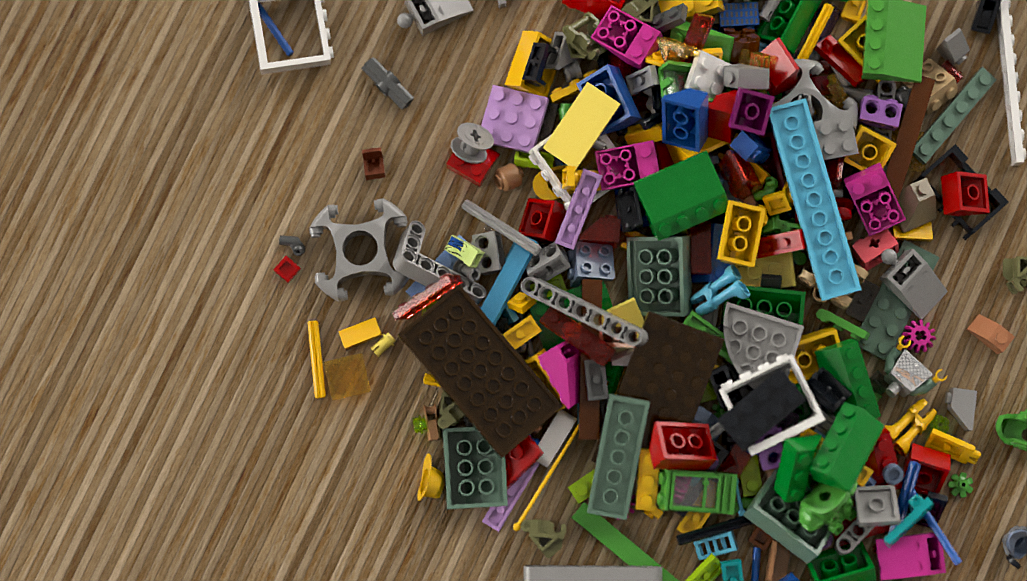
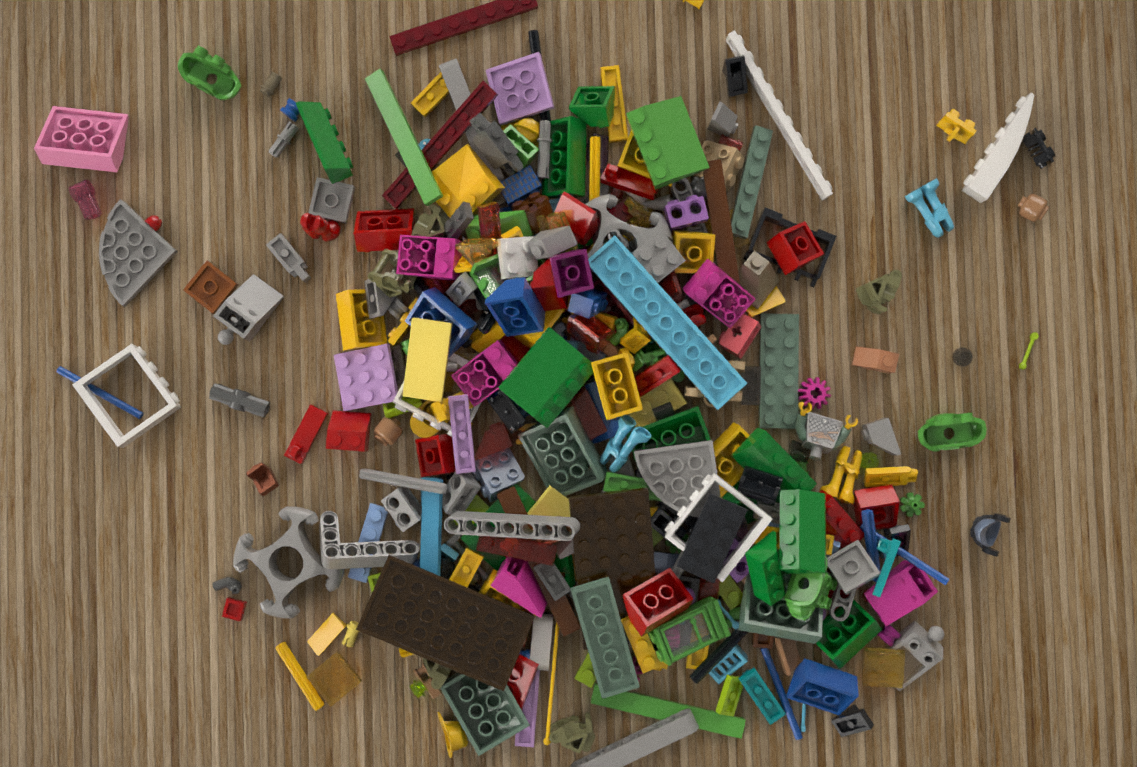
camera: 25 degrees left, 5 degrees up
(423, 299) = (365, 580): clear red plate -> none
(431, 144) = (306, 434): none -> red hinge
(464, 251) = (380, 519): yellowish green leg -> none
(465, 270) = (389, 532): light grey pin -> none
(472, 143) = (339, 419): light grey piece -> none
(521, 302) = (452, 542): yellow plate -> none
(537, 63) = (361, 319): black hinge -> none
(841, 324) = (743, 416): bright green hinge -> none
(893, 473) = (852, 530): sand blue tile -> none
(913, 285) = (788, 351): light grey slope -> none

